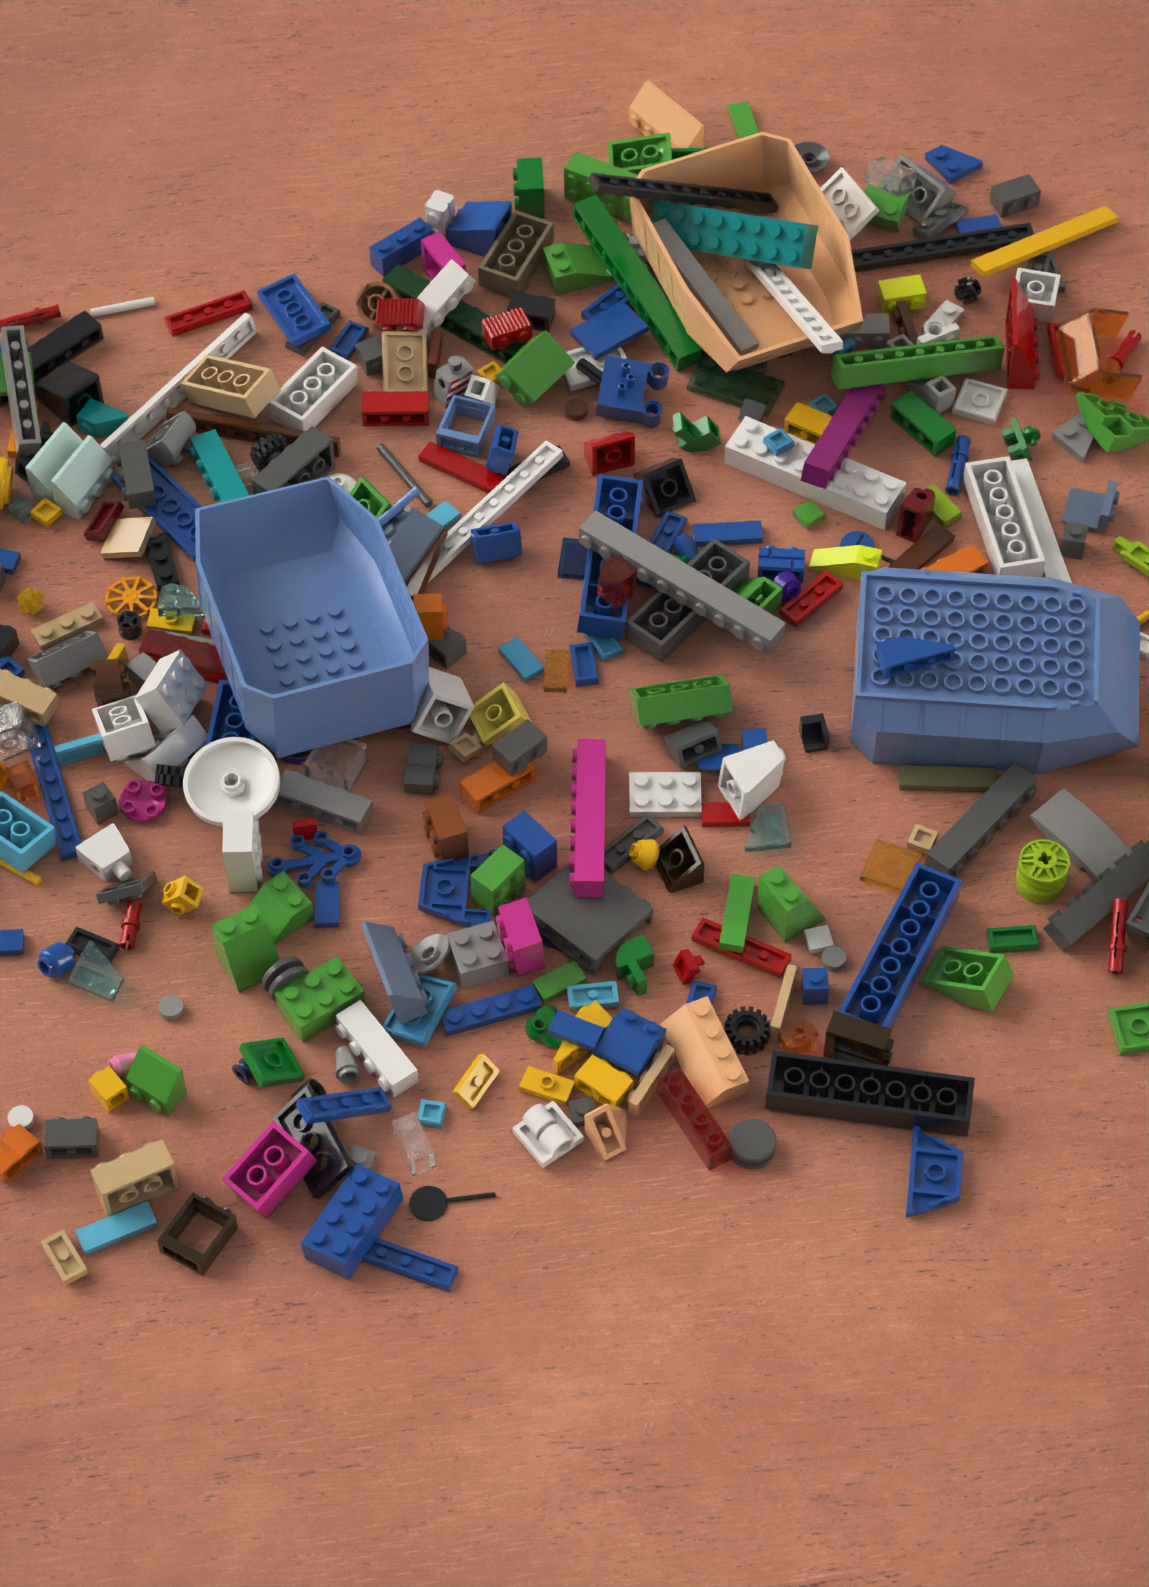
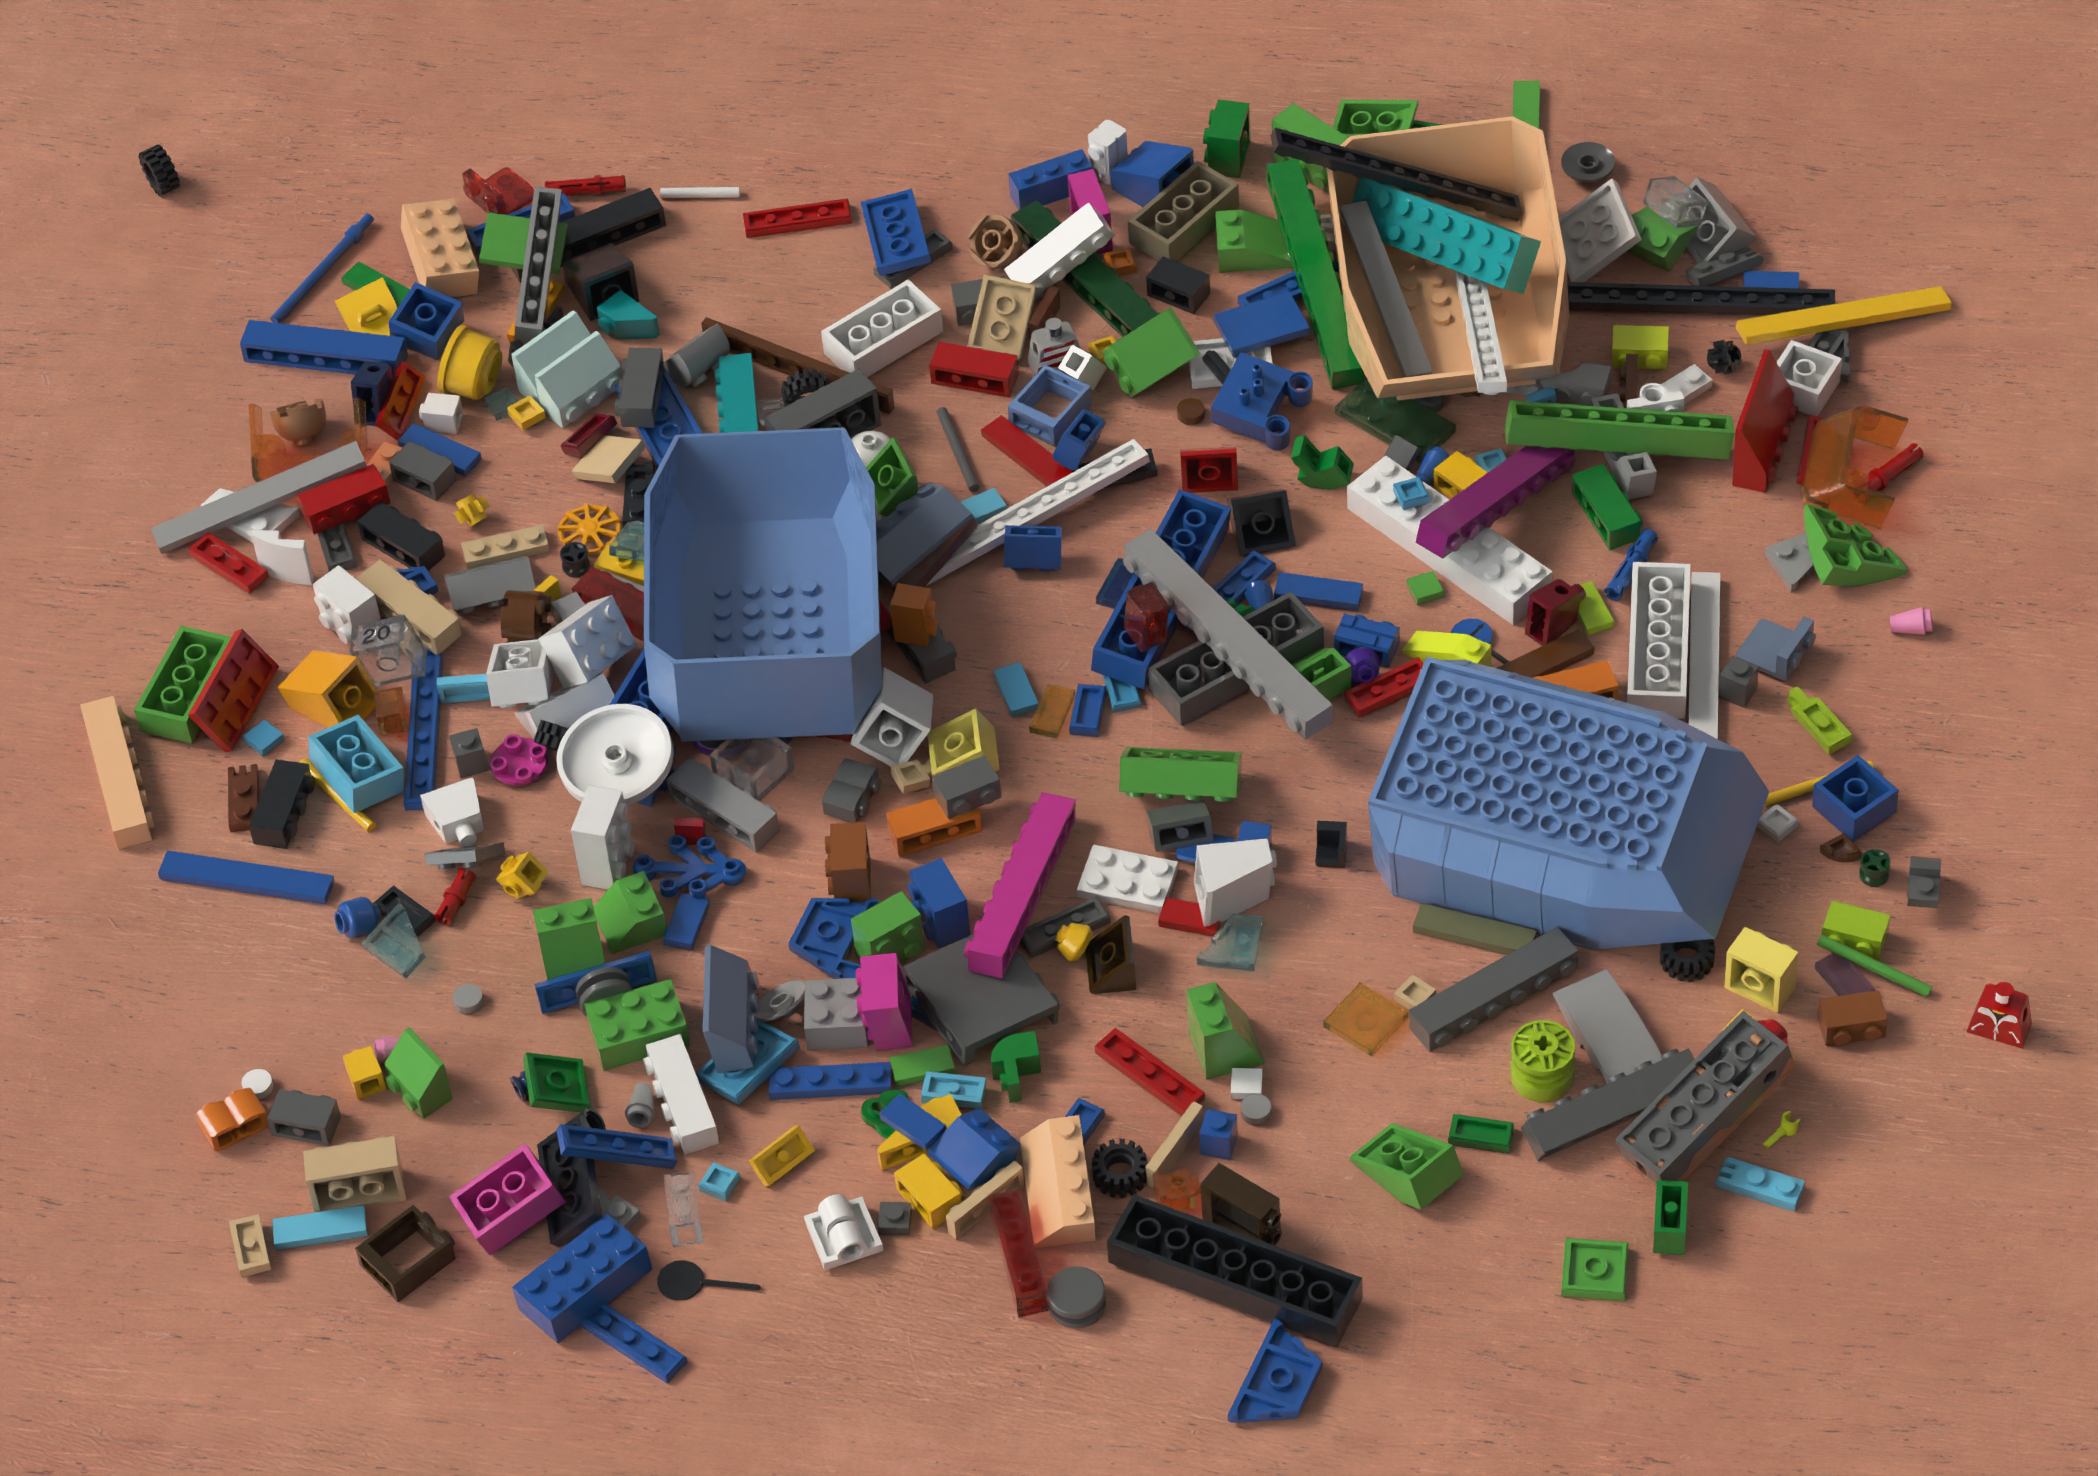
camera: 20 degrees right, 5 degrees down
(173, 393) = (736, 293): white plate -> none
(230, 386) = (785, 305): tan brick -> none
(250, 983) = (561, 991): none -> blue tile
(349, 336) = (957, 271): blue tile -> none
(398, 506) = (916, 486): medium blue bar -> none
(400, 314) = (1011, 258): red brick -> none
(478, 299) = (1120, 261): none -> orange tile
(507, 328) = (1134, 298): red brick -> none
(547, 1085) = (863, 1179): yellow plate -> none
(607, 1129) = (914, 1241): light nougat slope -> none
(658, 114) = (1417, 76): light nougat slope -> none
(687, 966) = (1078, 1080): red tile -> none
(737, 913) = (1155, 1032): bright green tile -> none
(778, 414) = (1430, 461): none -> blue cone
(902, 946) = (1338, 1113): blue brick -> none
(908, 654) = (1446, 766): blue slope -> none
(951, 163) = (1768, 201): blue wing -> none
(979, 401) = (1690, 494): white tile -> none
(1014, 433) = (1722, 547): green hips -> none
(1015, 195) = (1829, 253): dark grey brick -> none
(1116, 773) = (1688, 966): none -> black tyre
(1118, 936) = (1602, 1167): red pin -> none

